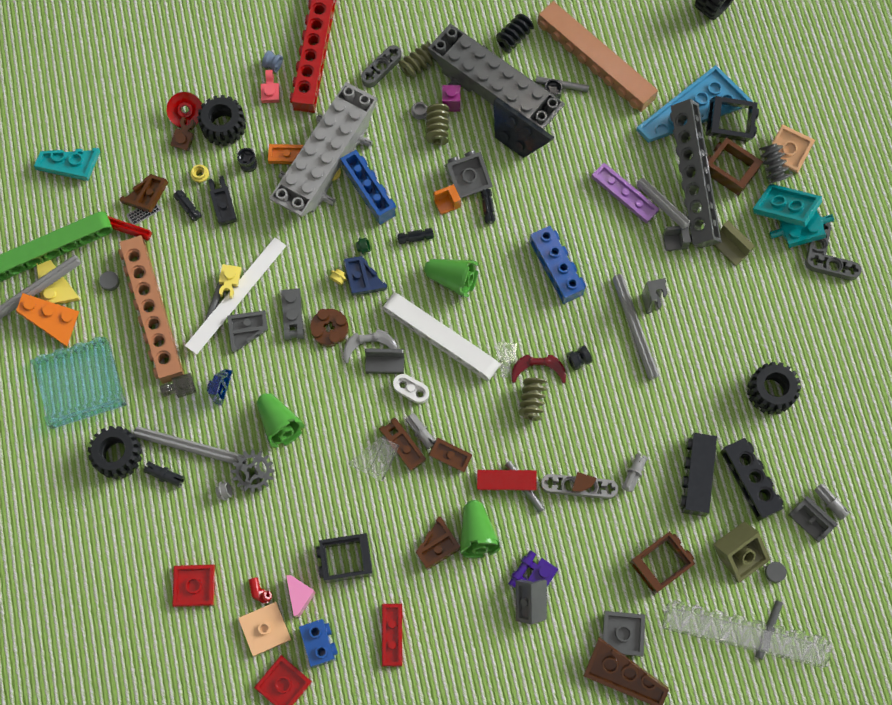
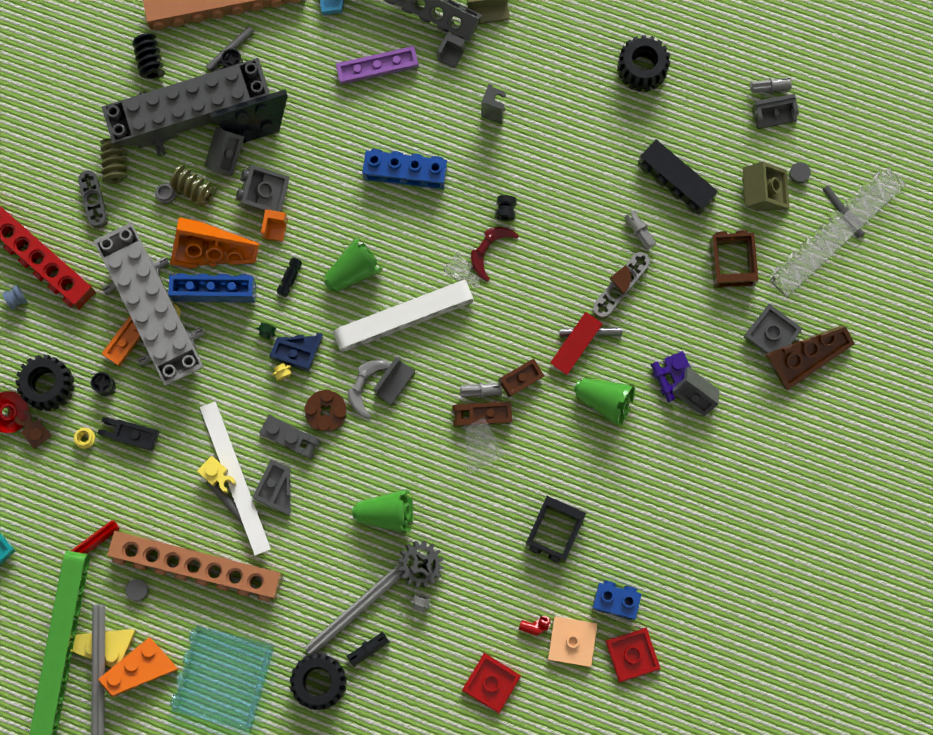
camera: 55 degrees left, 5 degrees up
(138, 215) = (86, 515): sticker -> none
(146, 193) = (70, 501): reddish brown wing -> none
(182, 386) = (291, 582): clear smoke plate -> none
(187, 205) = (111, 469): black axle -> none
(218, 386) = (319, 548): wing -> none
(270, 91) = (43, 319): coral plate -> none
(299, 594) = (563, 591): bright pink slope -> none
(391, 635) = (649, 531): red tile -> none
(398, 160) = (206, 245): none -> orange wedge
(412, 388) = (435, 373): white plate -> none
(437, 545) = (595, 441): reddish brown wing -> none
(451, 97) = (174, 155): magenta brick -> none
(478, 129) = (224, 151): none -> dark grey panel
(488, 207) = (305, 193): black axle -> none
(531, 398) = (517, 273): olive piece -> none
(635, 327) = (508, 141): light grey axle -> none
(663, 203) = (411, 39): light grey axle -> none
(760, 508) = (700, 142): black brick -> none

